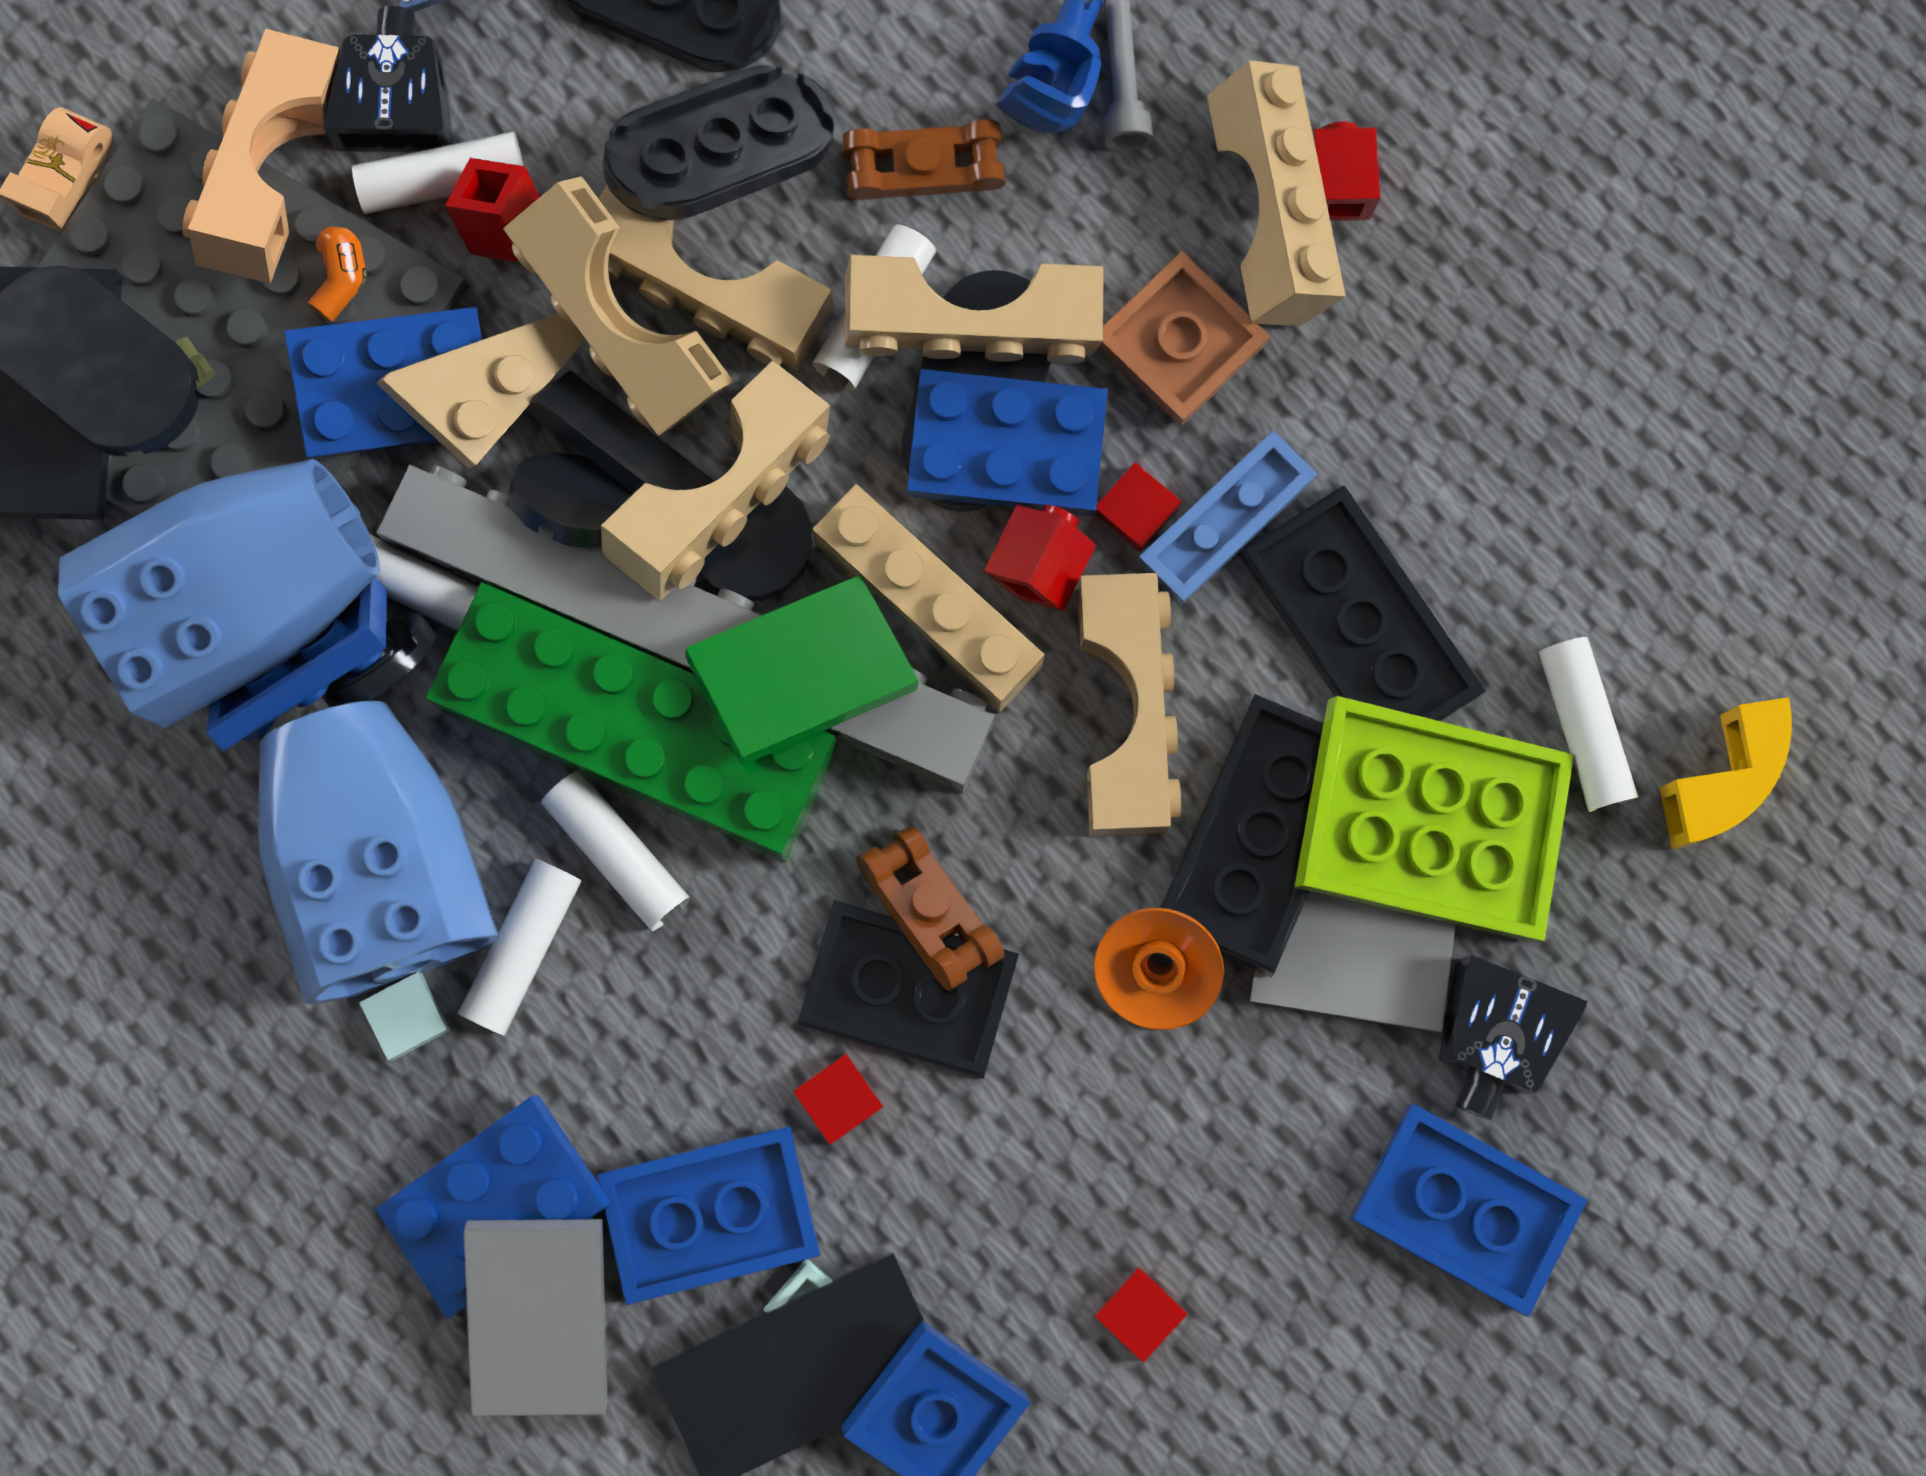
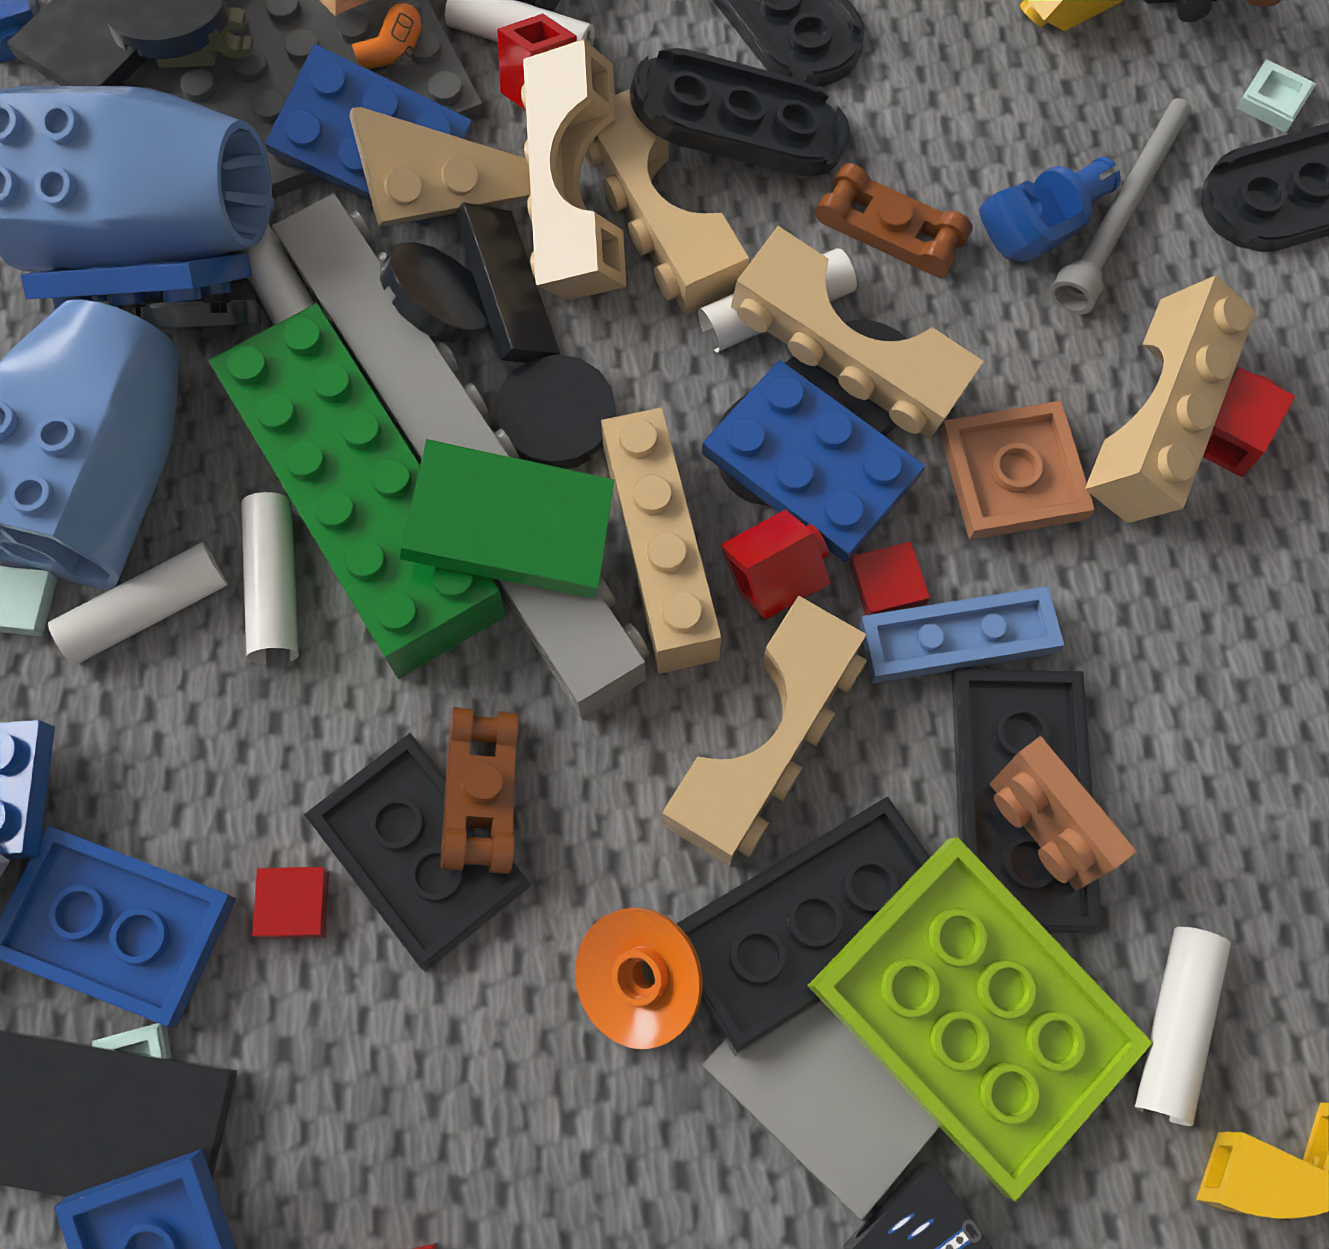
camera: 40 degrees right, 10 degrees down
(667, 533) = (486, 353): tan arch -> none
(1417, 632) = (1060, 815): none -> nougat plate

